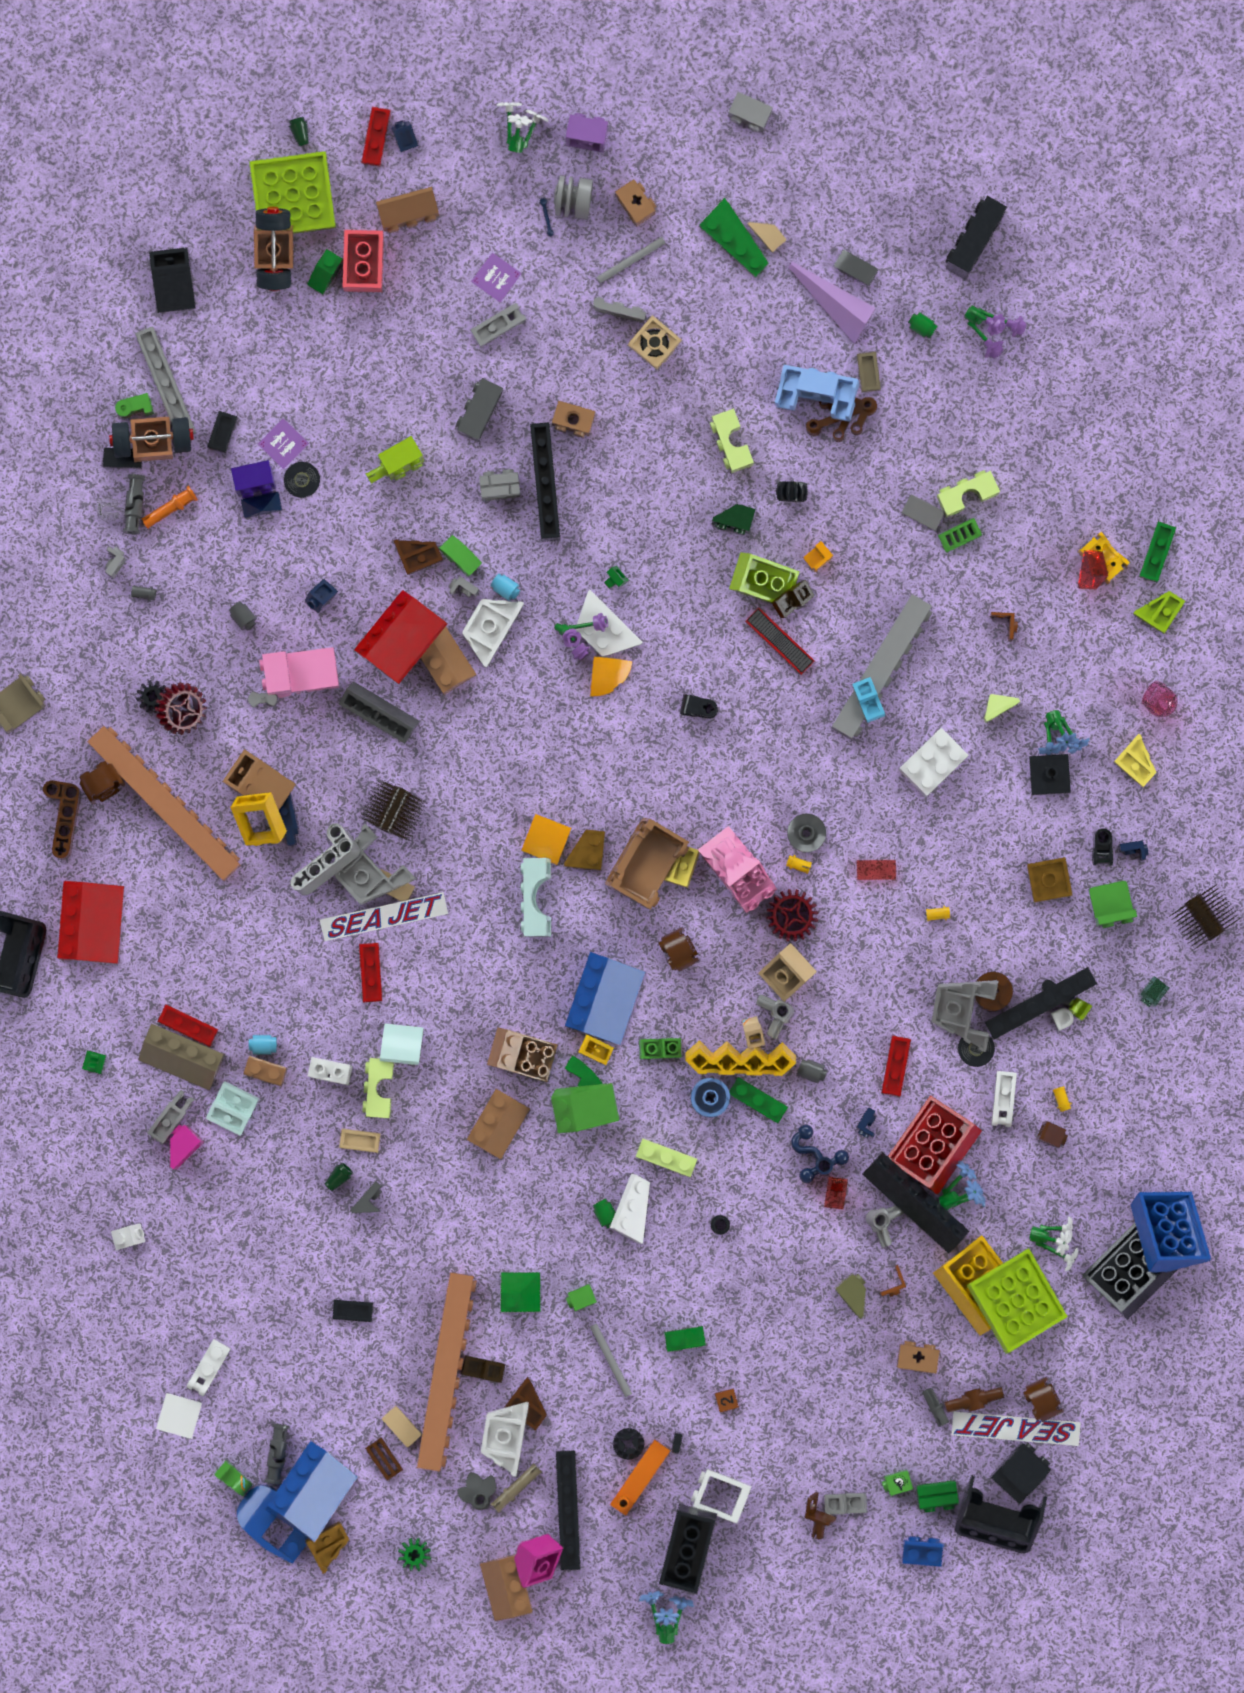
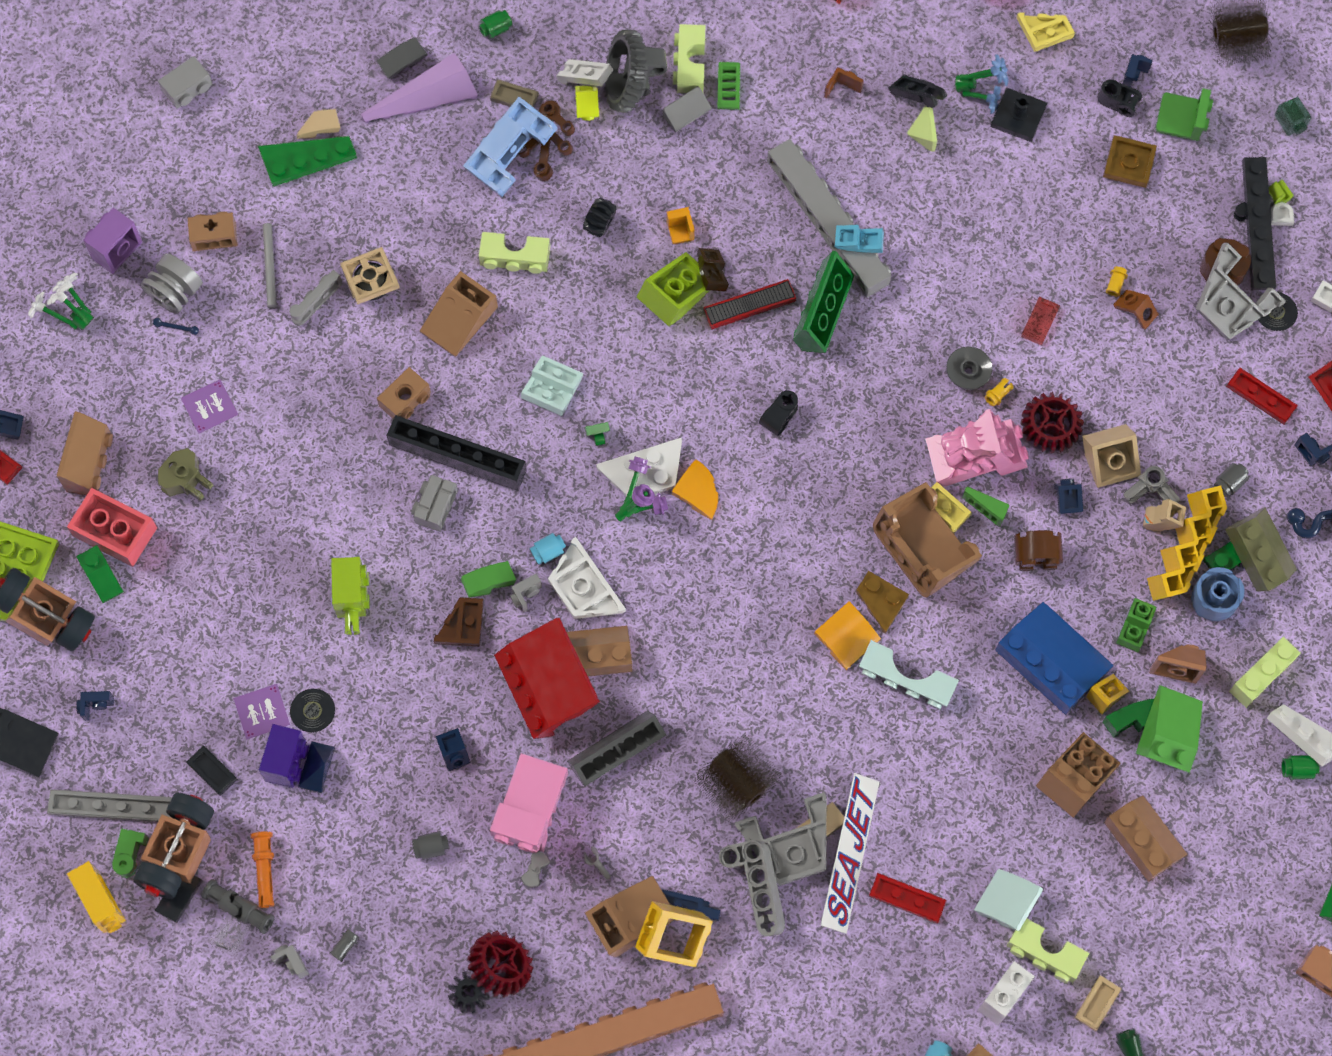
camera: 65 degrees left, 15 degrees down
(90, 403) = (96, 897): none -> yellow window
(231, 322) = (97, 700): none -> dark blue bracket
(288, 736) = (596, 862): none -> light grey hand
(364, 1204) = (1176, 1032): dark grey slope -> none
(429, 291) = (182, 475): none -> olive hinge
(479, 409) = (341, 485): dark grey brick -> none
(498, 325) = (261, 426): light grey plate -> none
(638, 524) = (551, 385): none -> light aqua slope
(643, 1093) = (1181, 663): none -> nougat slope
(658, 425) = (459, 313): none -> medium nougat slope
(698, 903) = (990, 507): none -> bright green slope
(736, 518) = (599, 284): dark green slope -> none
(738, 954) = (1069, 496): none -> dark blue bracket
(762, 1117) = (1261, 550): none -> olive slope
(801, 698) = (824, 305): none -> green slope
(887, 432) = (587, 102): none -> neon yellow brick
(909, 418) = (584, 72): none -> white plate
(918, 456) = (641, 63): none -> dark grey piece
(924, 937) = (1136, 303): none -> dark orange bracket
(933, 762) = (954, 213): white brick -> none
(1025, 684) = (918, 90): none -> black hinge

